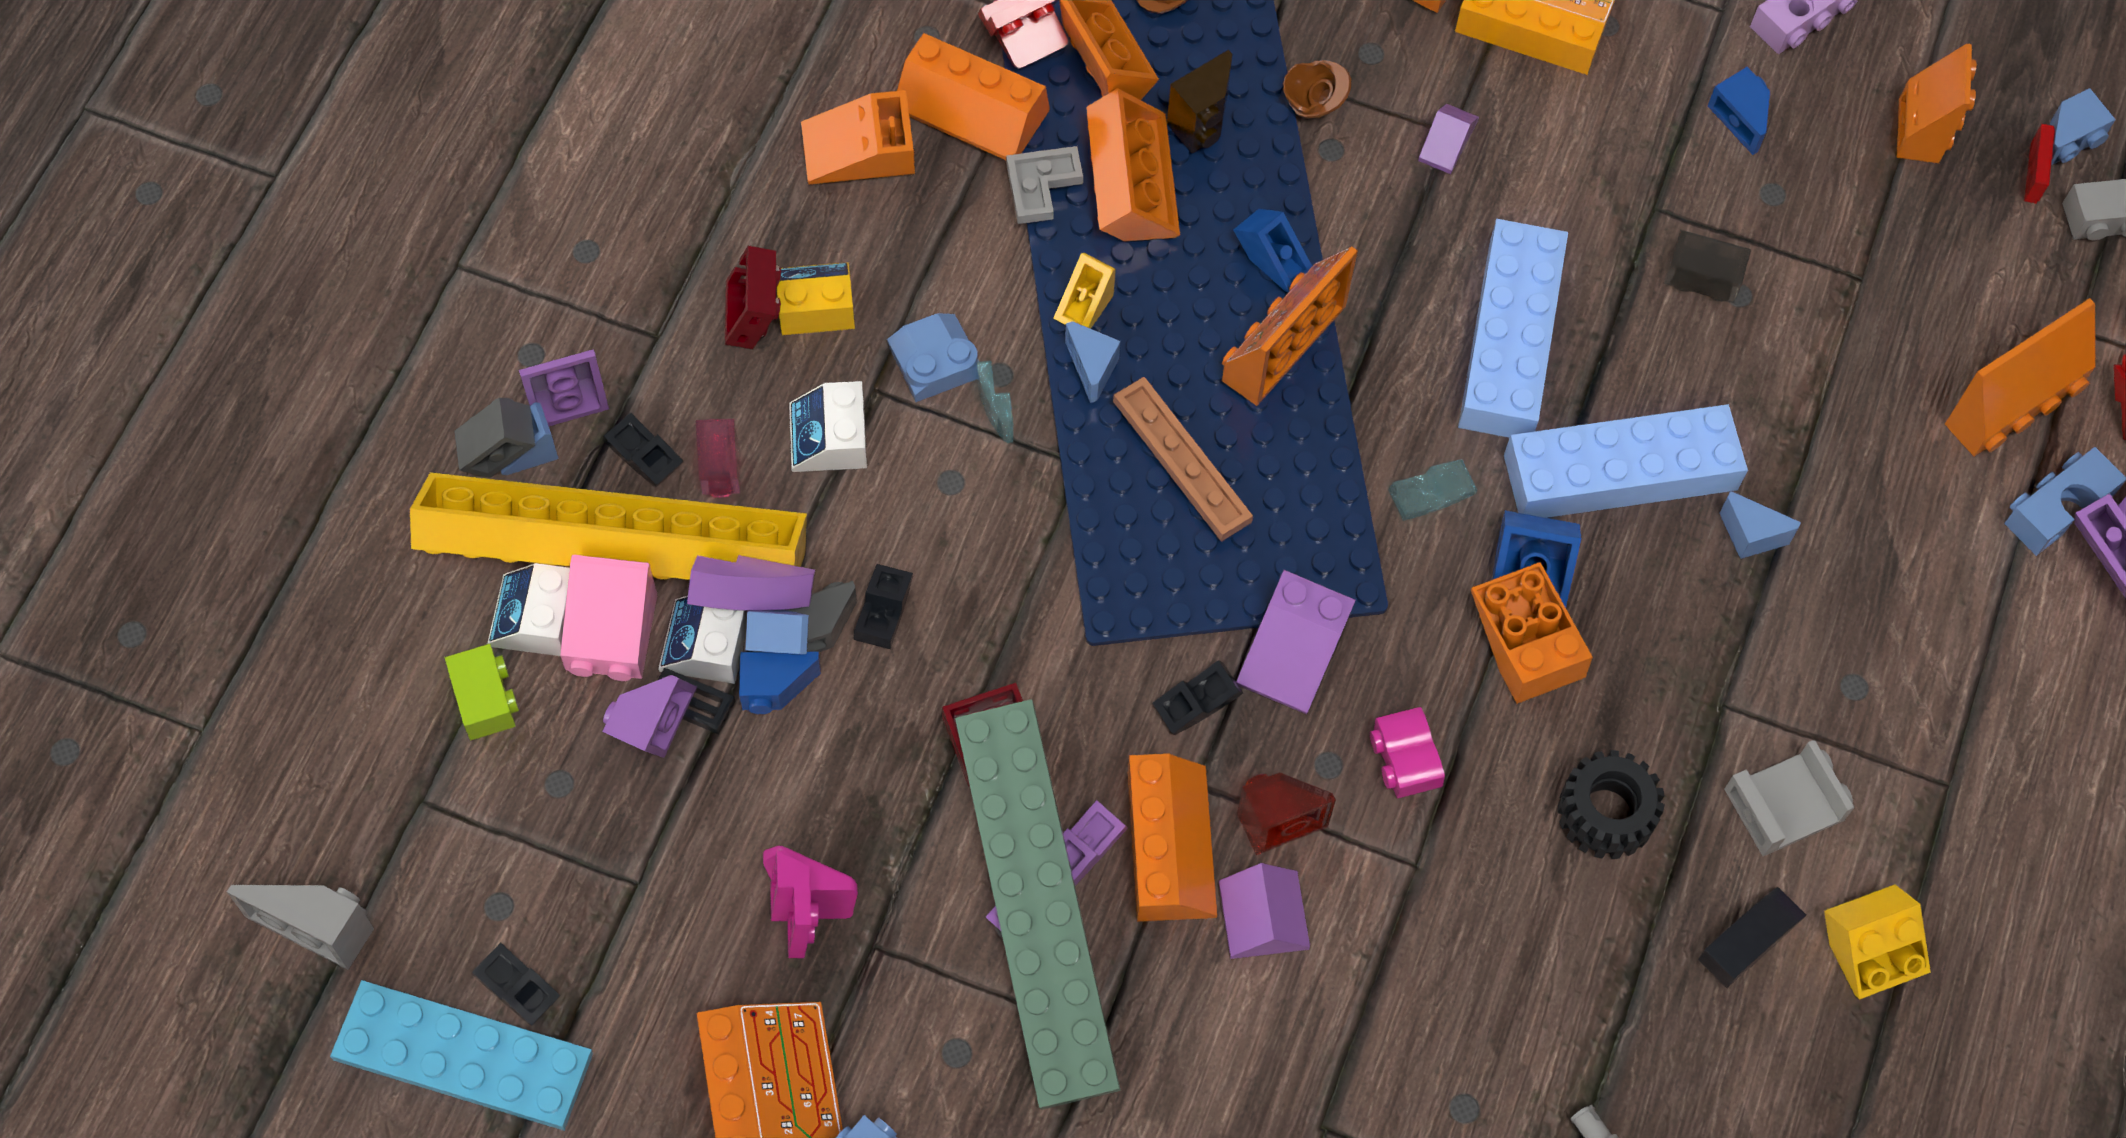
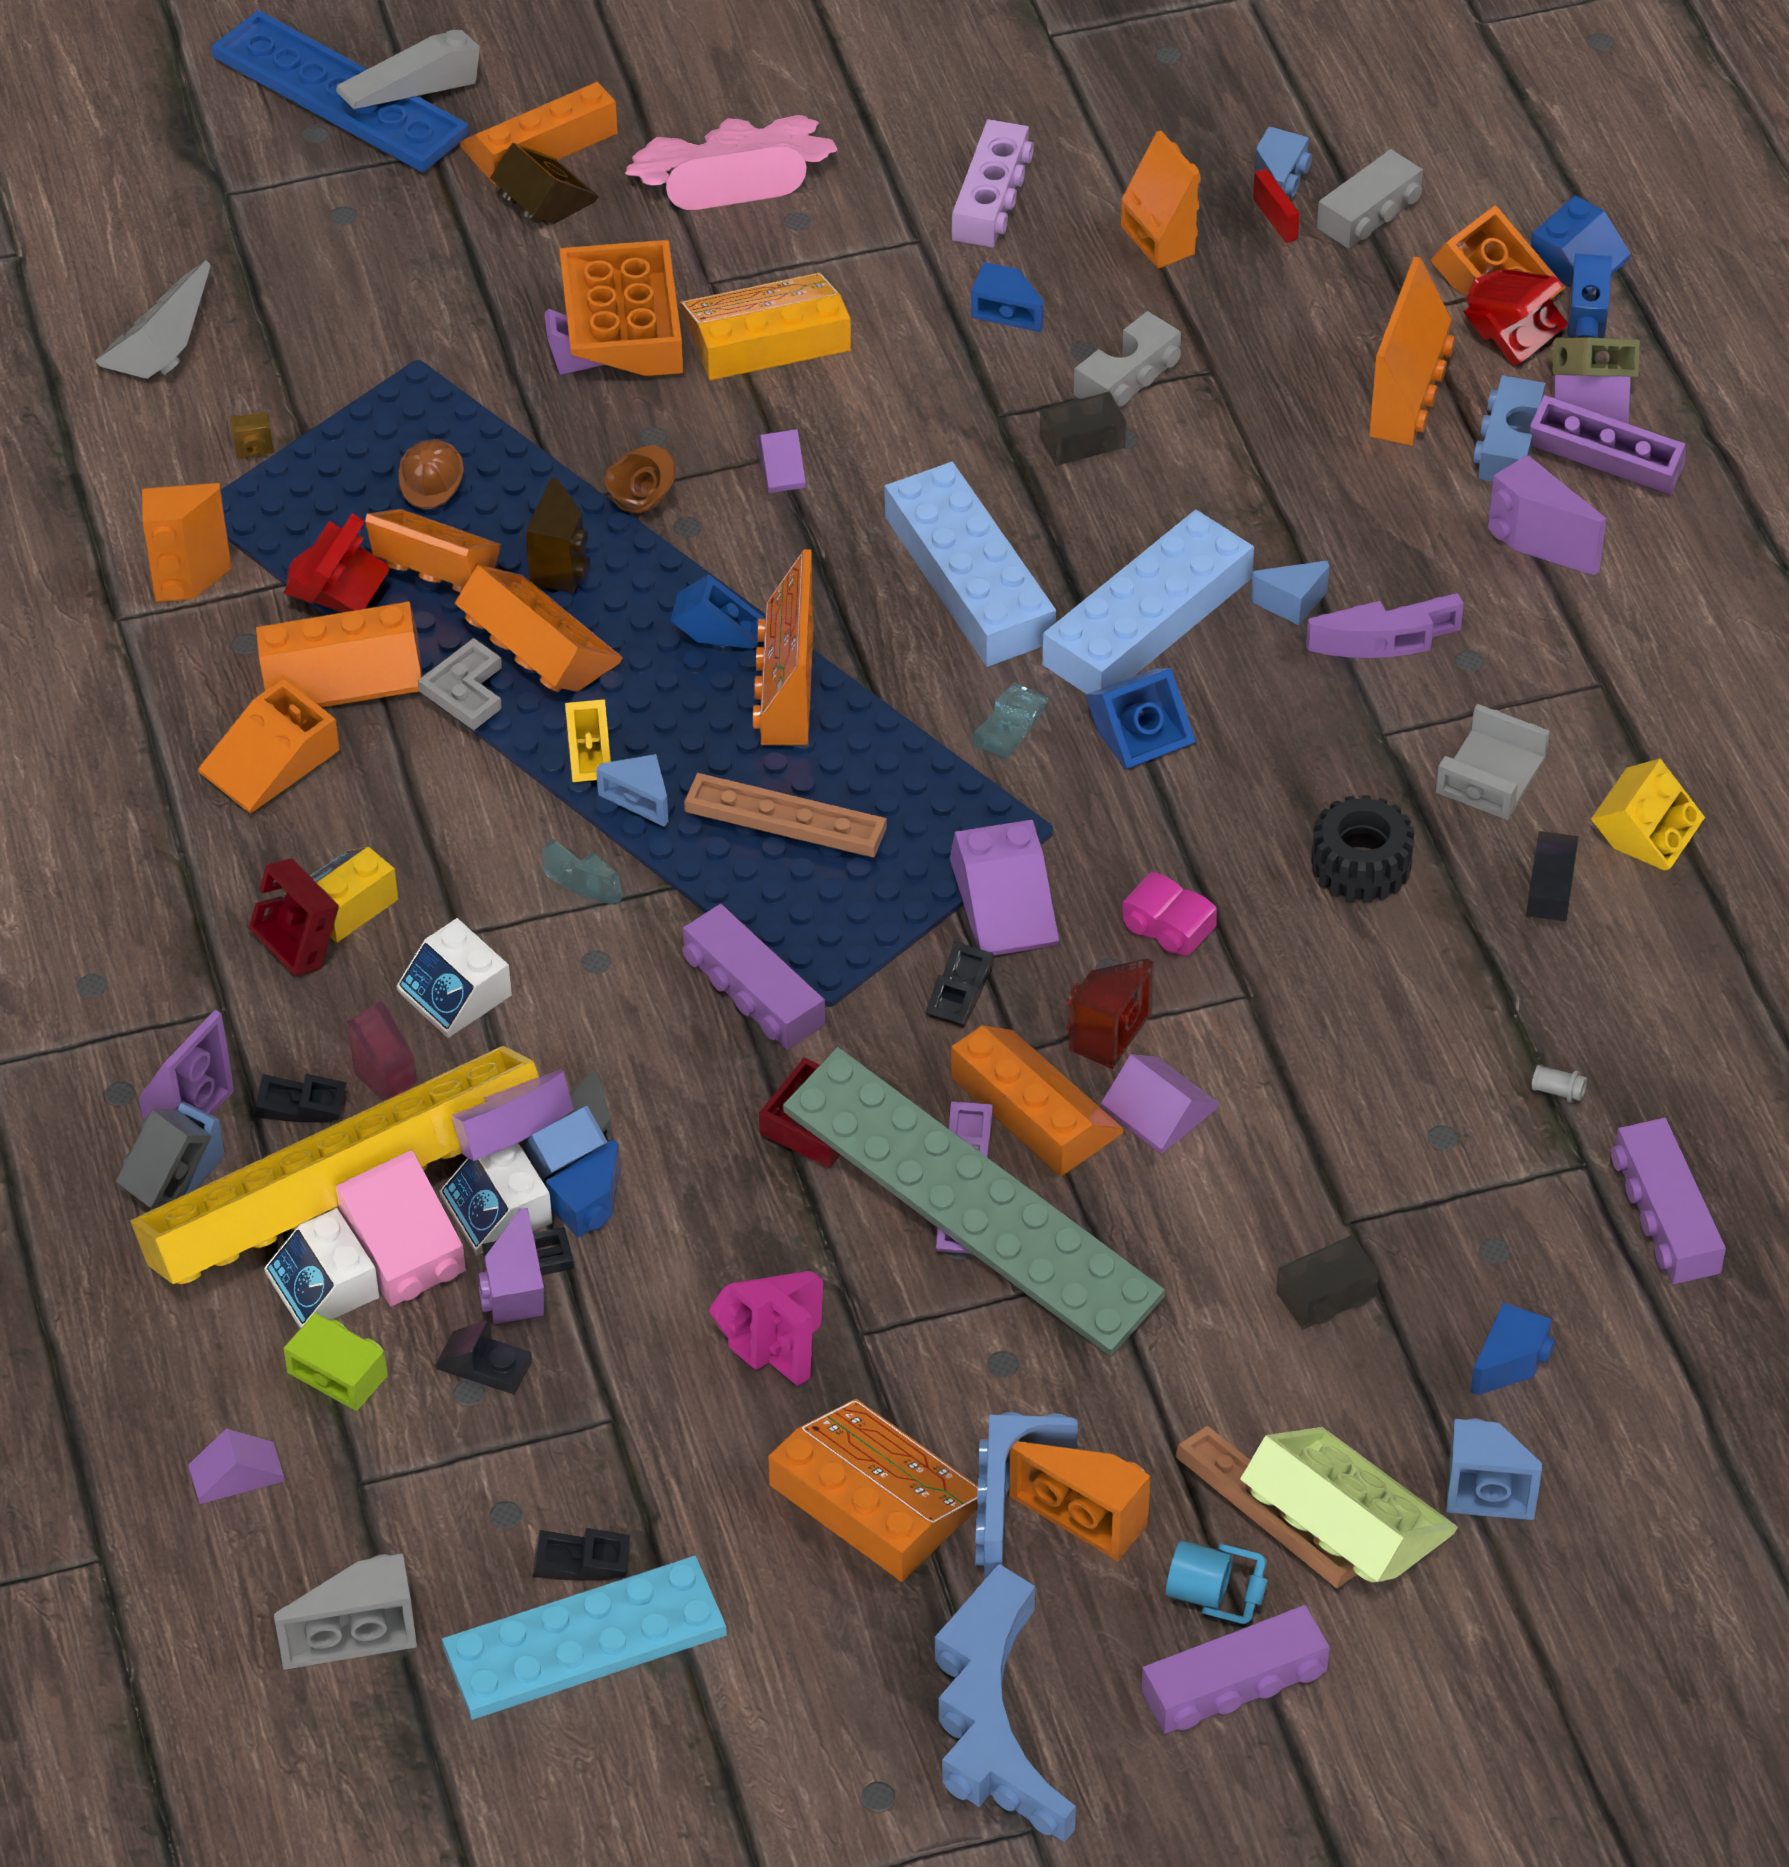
camera: 35 degrees left, 15 degrees down
(347, 727) = (234, 1466): none -> medium lavender slope
(588, 767) = (479, 1358): none -> black slope
(883, 606) = (628, 1083): black slope -> none
(934, 355) = (492, 874): medium blue slope -> none
(1045, 581) = (753, 977): none -> medium lavender brick
(1531, 633) = (1189, 769): orange slope -> none
(1788, 609) = (1378, 633): none -> medium lavender slope
(1825, 230) = (1147, 351): none -> light grey arch
(2018, 603) = (1545, 517): none -> medium lavender slope

